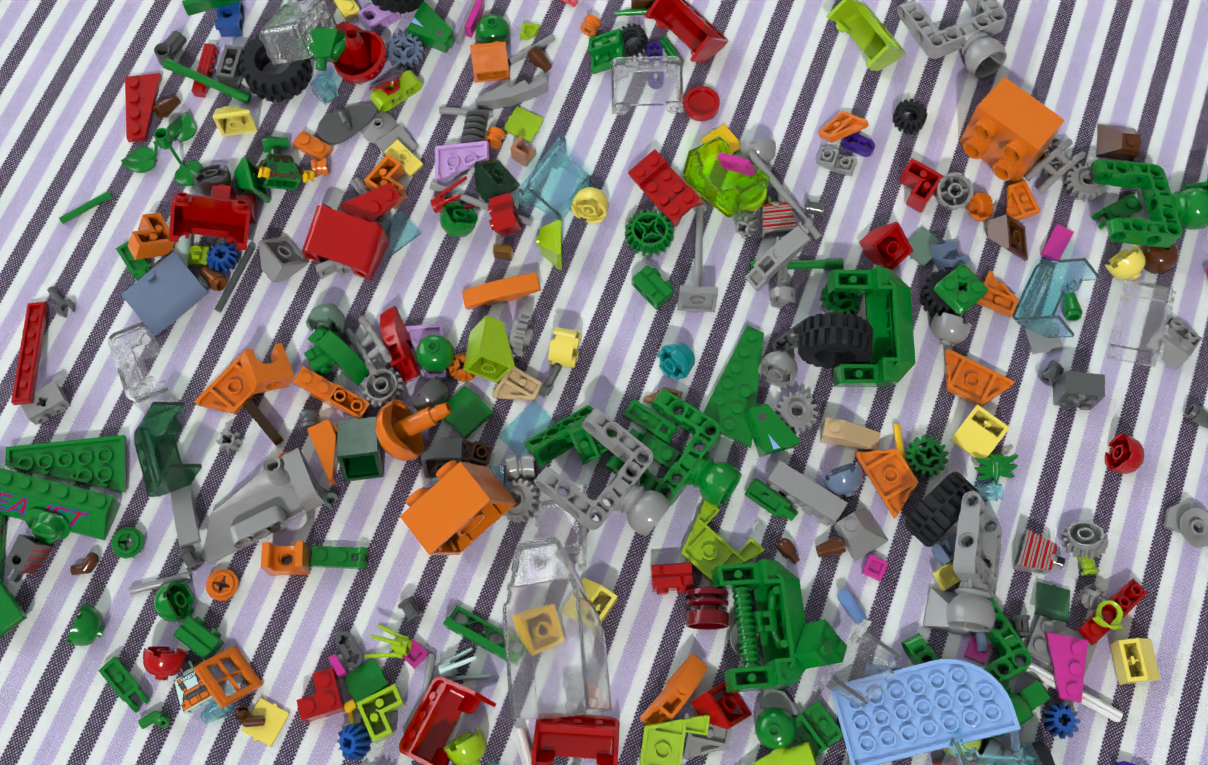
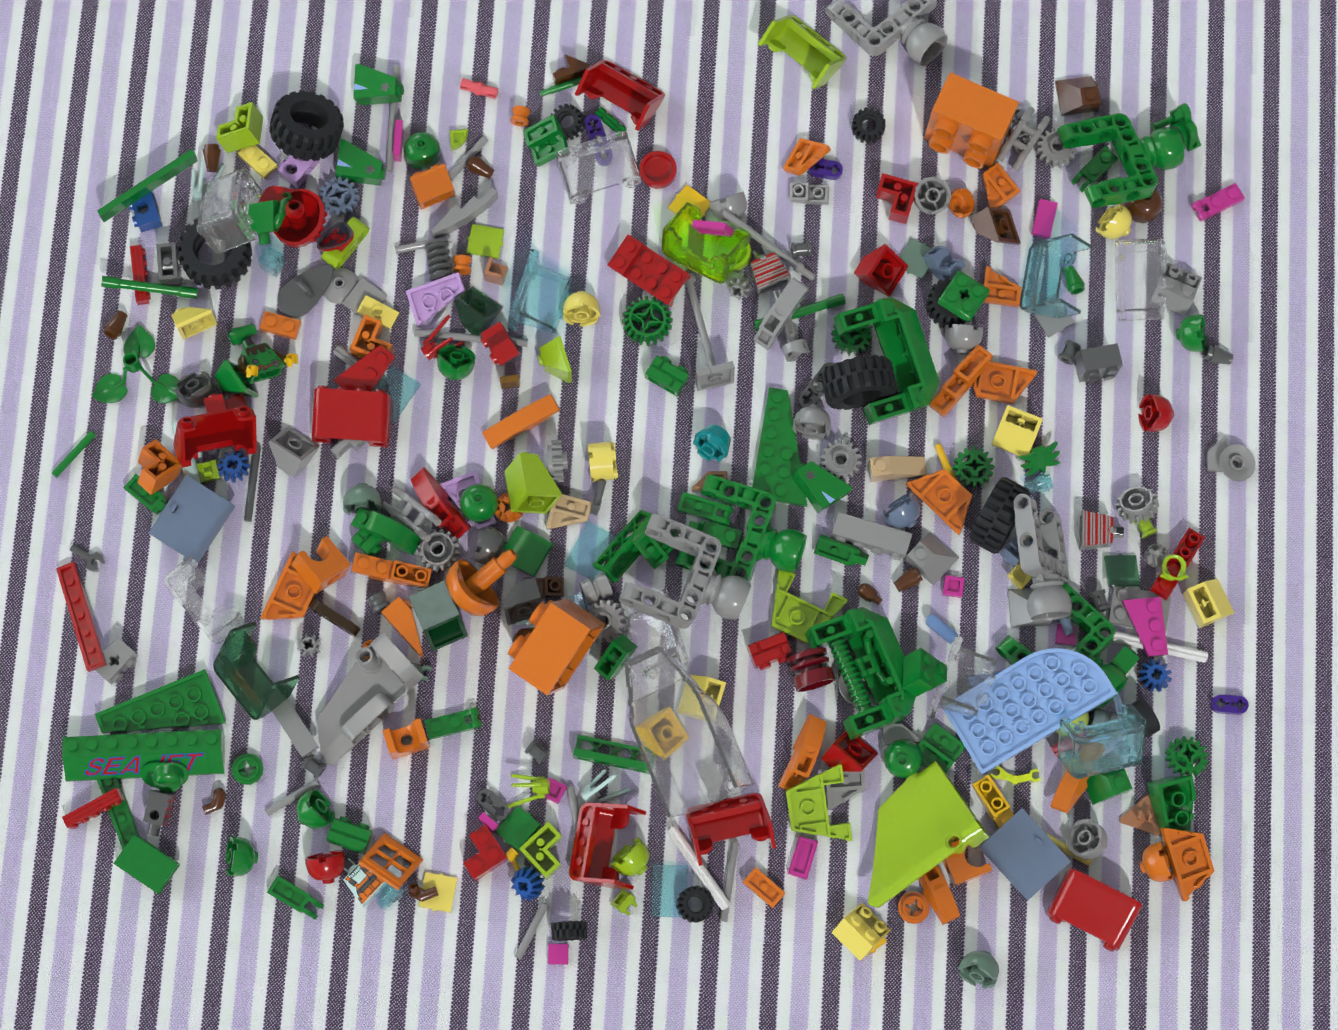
camera: 20 degrees left, 5 degrees up
(140, 100) = (84, 322): red wing -> none
(155, 717) = (335, 918): green arm -> none
(169, 47) = (95, 260): dark grey piece -> none
(214, 279) = (234, 491): dark orange cone -> none
(218, 577) = (345, 775): orange gear -> none
(320, 167) = (297, 345): orange wheel -> none
(520, 531) = (614, 657): none -> green brick
(937, 369) = (961, 380): none -> orange slope
(1180, 388) = (1192, 333): none -> green cylinder

